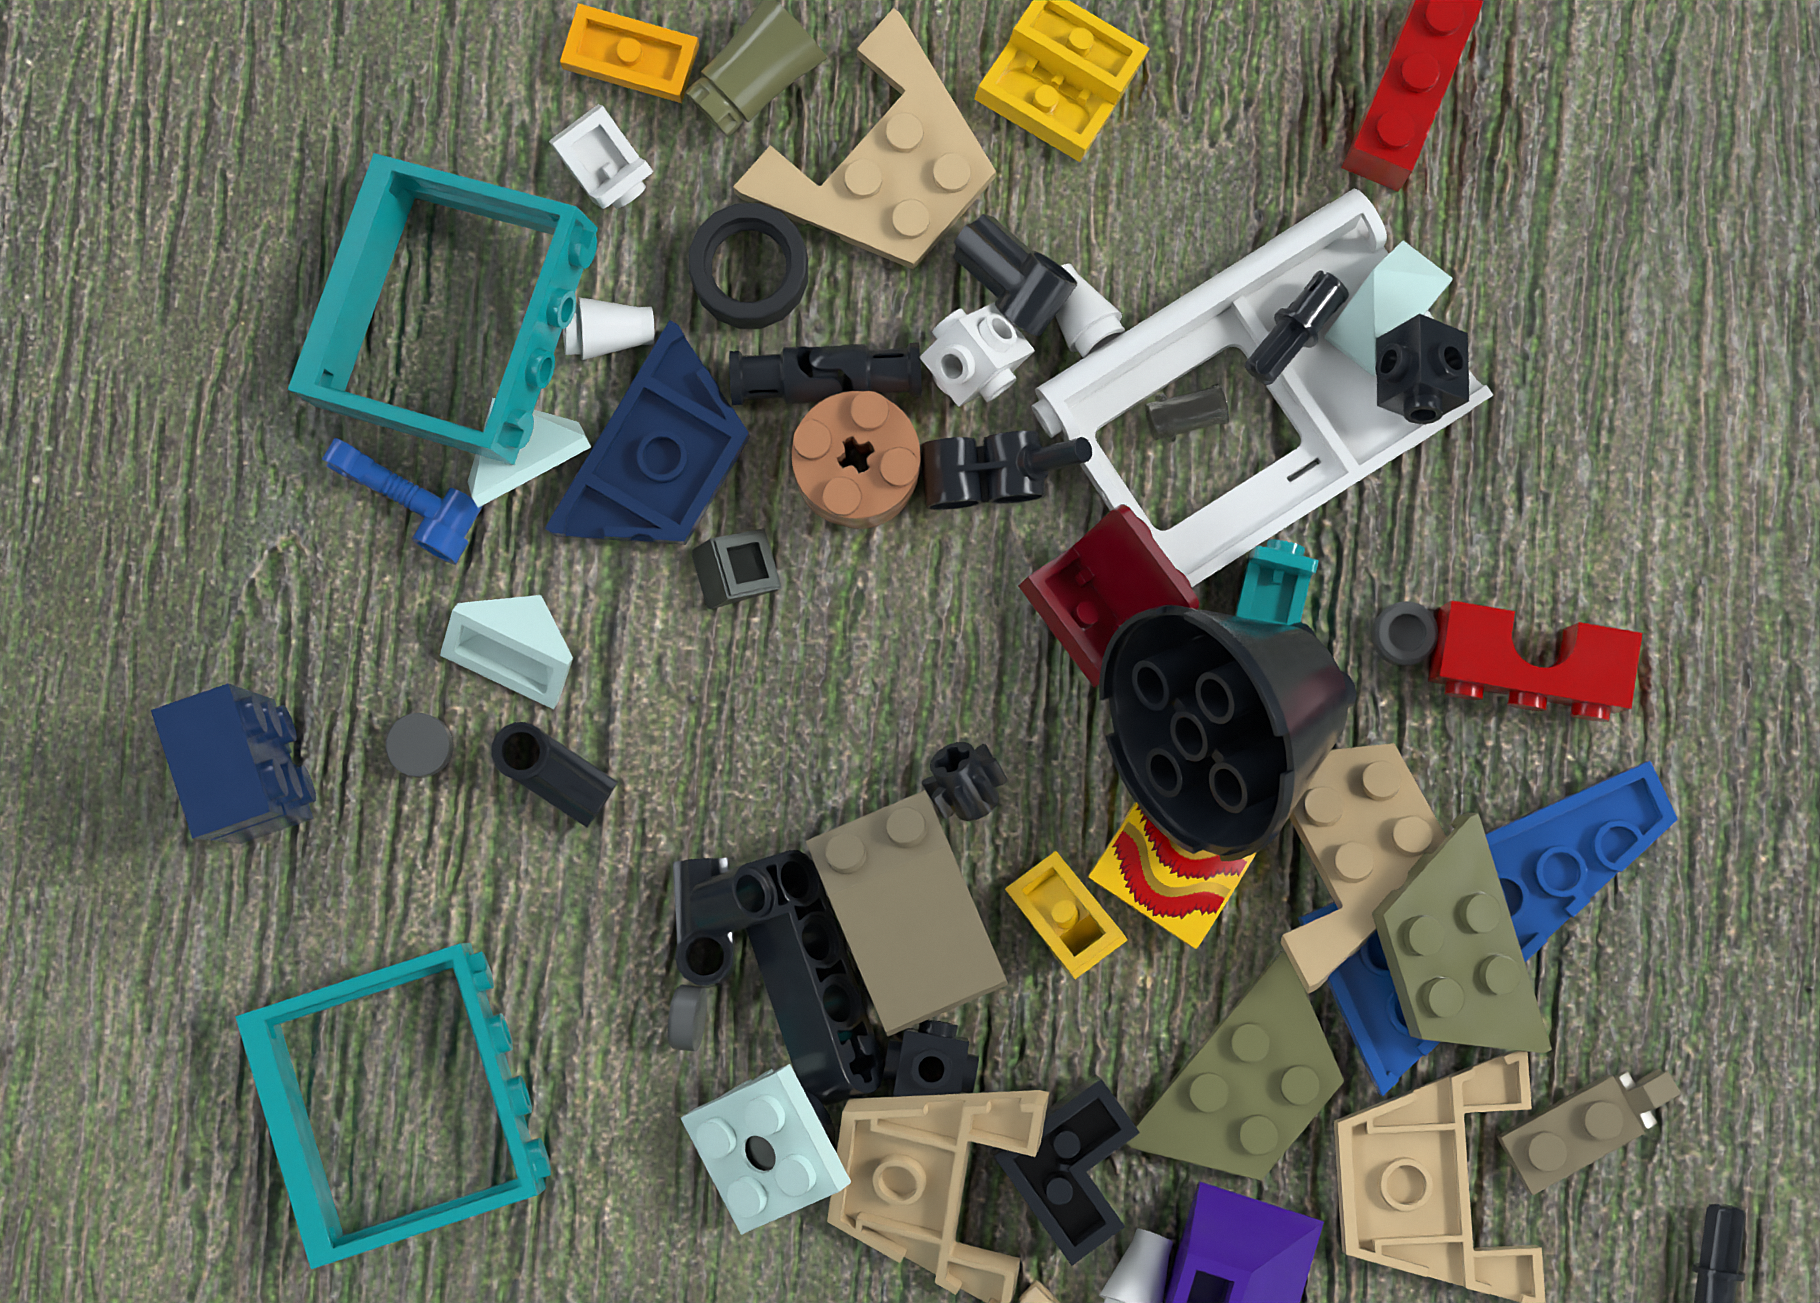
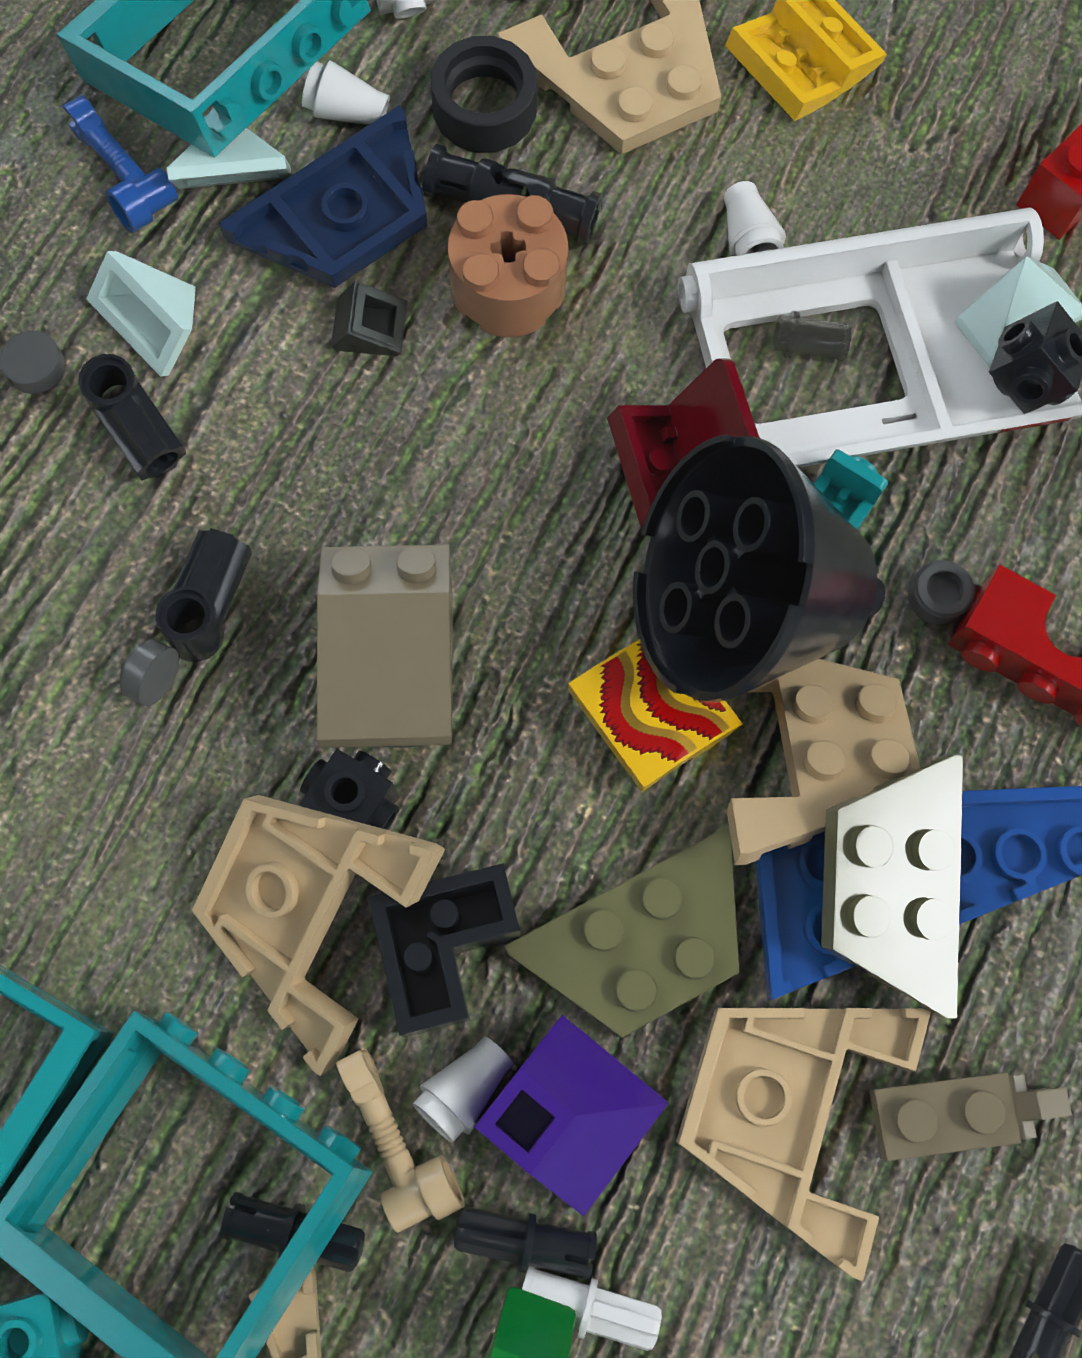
camera: 20 degrees right, 10 degrees down
(767, 1148) = (162, 808): light aqua piece -> none
(802, 969) = (270, 661): black beam -> none
(964, 781) = (490, 560): black gear -> none
(976, 354) = (647, 216): white brick -> none
(1001, 471) = (630, 328): black beam -> none
(1026, 282) = (707, 171): black piece -> none
(1065, 915) = (534, 712): yellow slope -> none
(1297, 326) = (936, 294): black axle -> none

